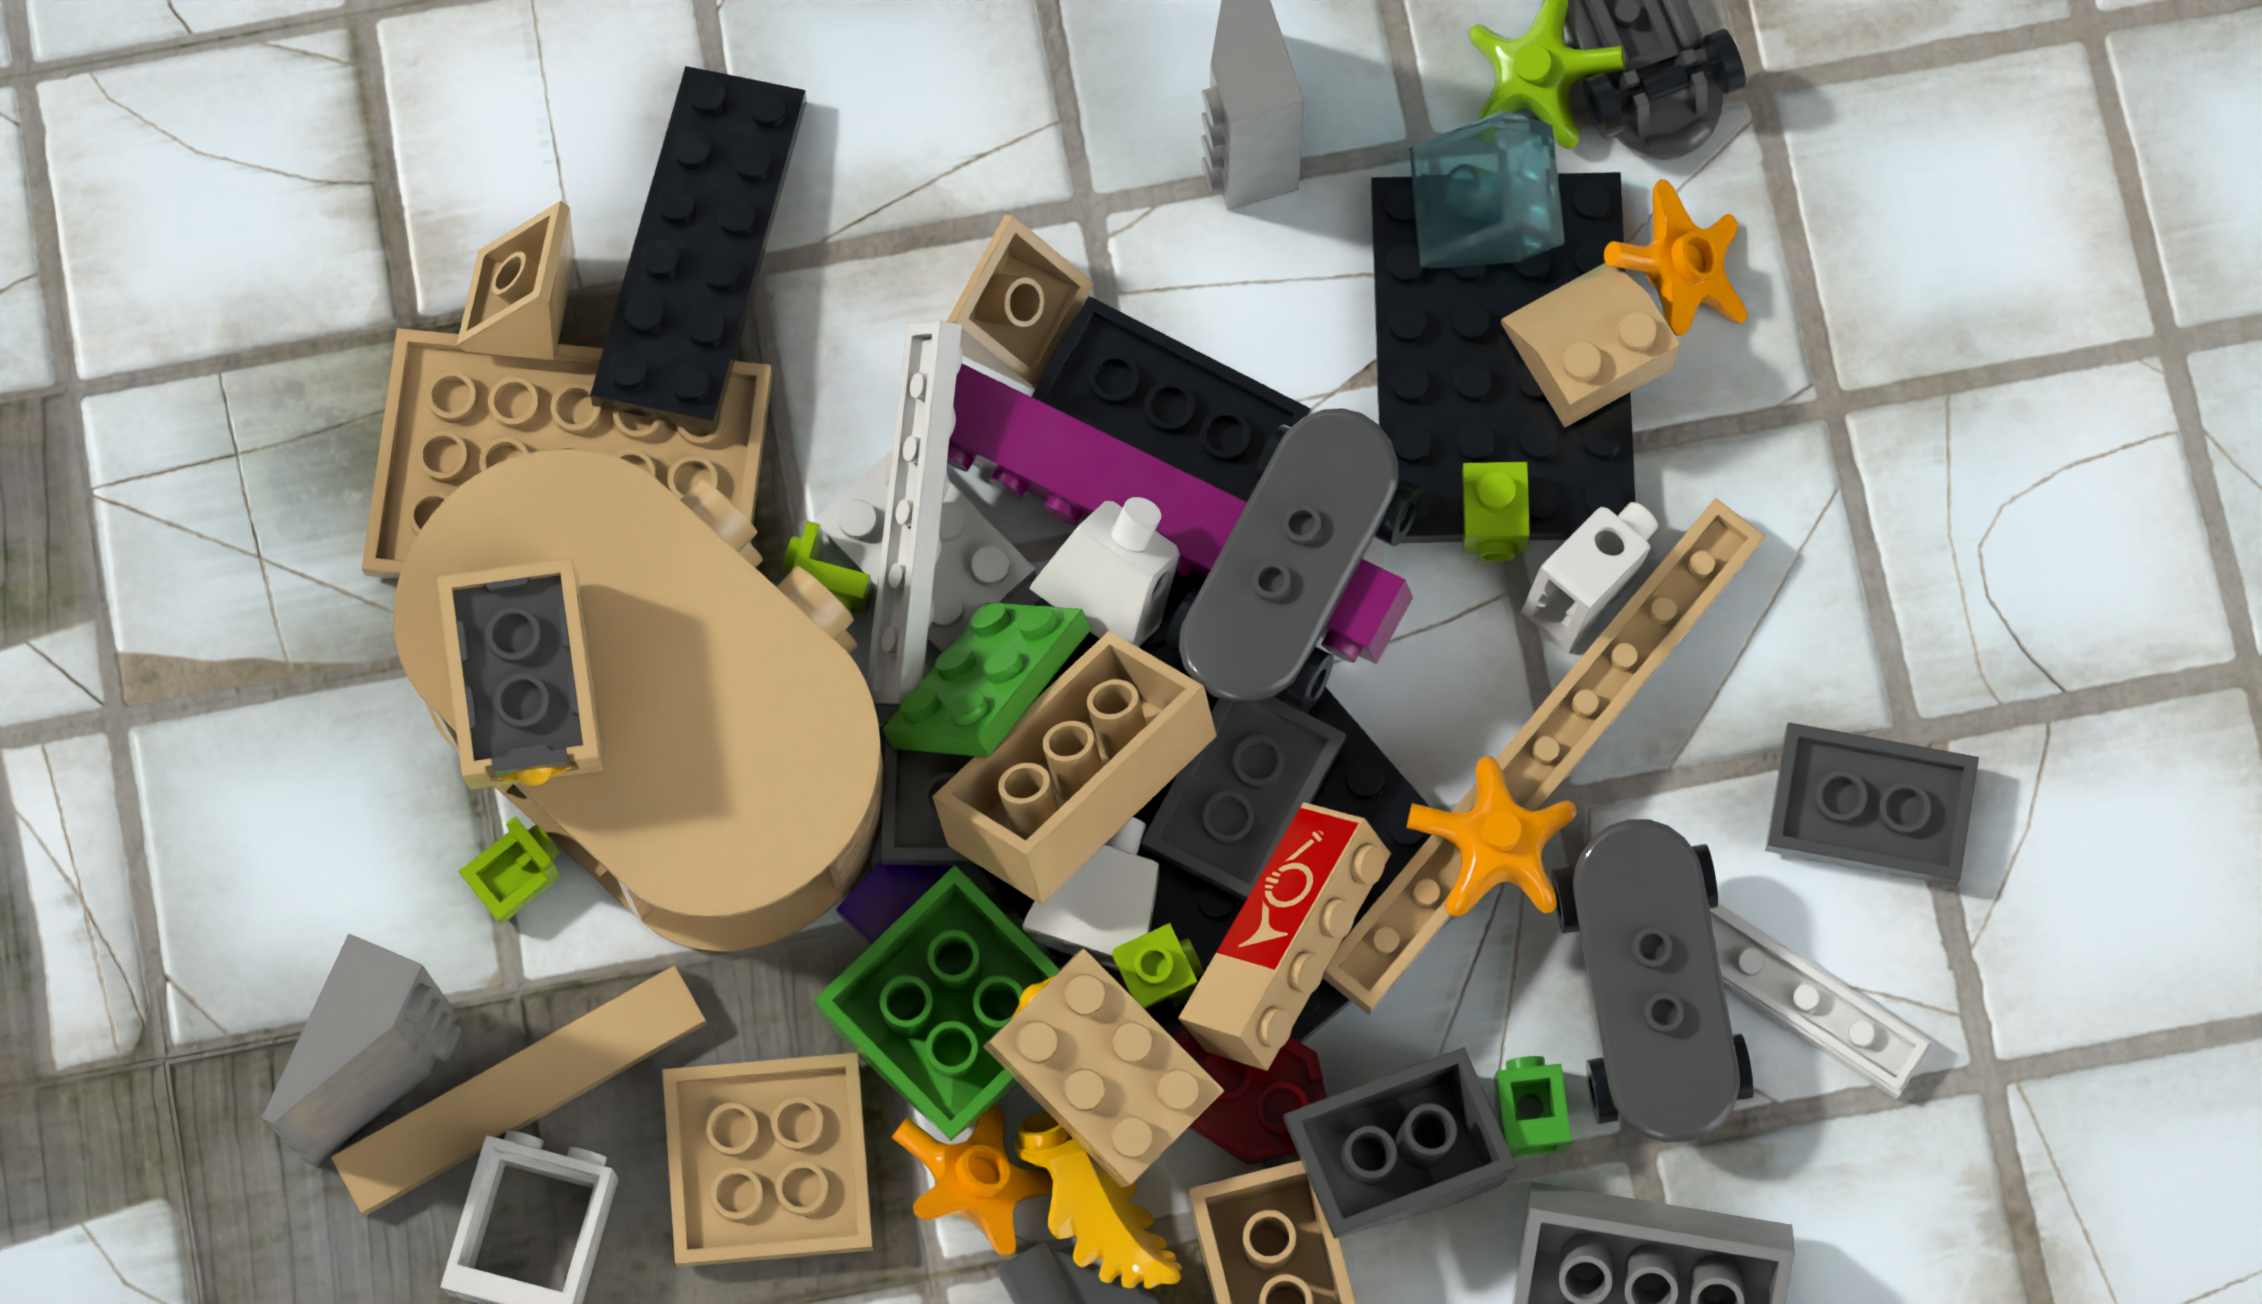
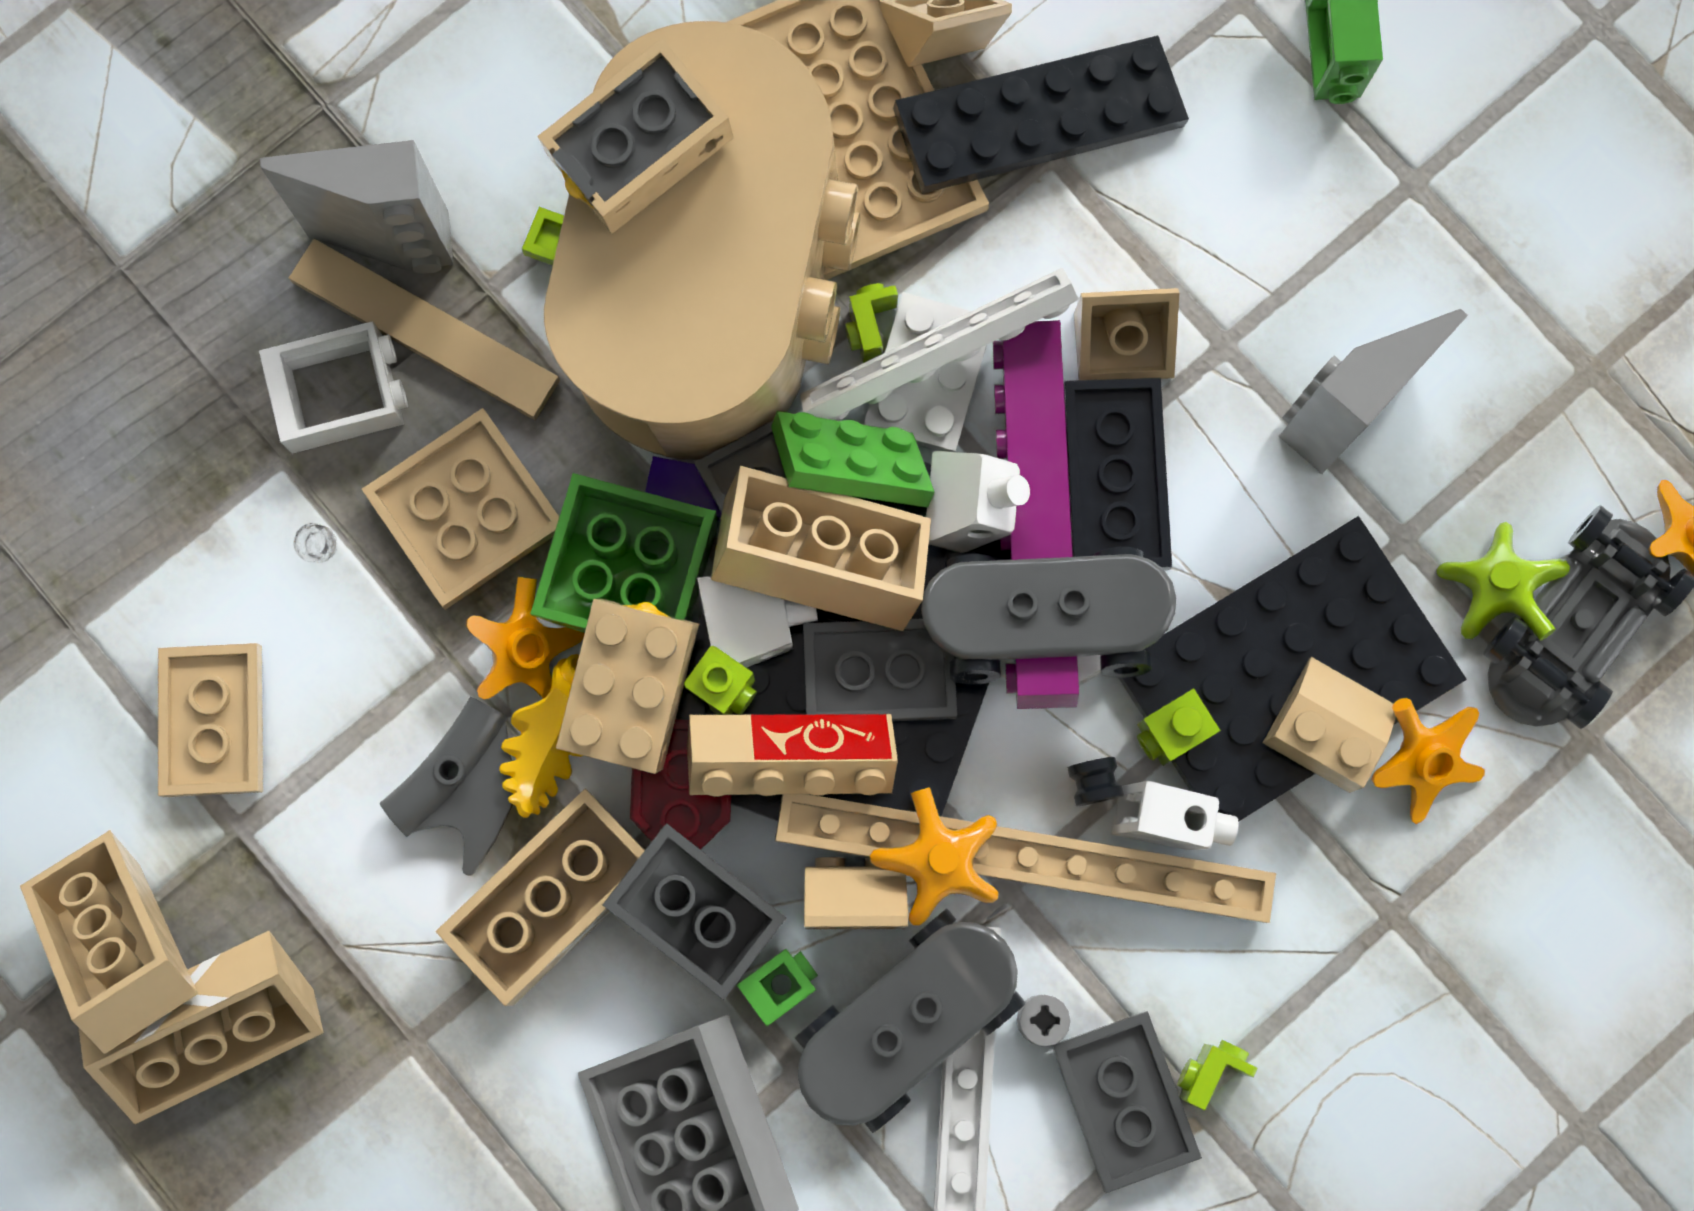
camera: 55 degrees right, 5 degrees up
(1480, 965) = (854, 896): none -> tan slope
(1487, 192) = (1393, 597): clear light blue slope -> none
(1502, 631) = (1095, 781): none -> black wheel
(1728, 851) = (1034, 1020): none -> light grey wheel
(1890, 703) = (1202, 1076): none -> lime bracket

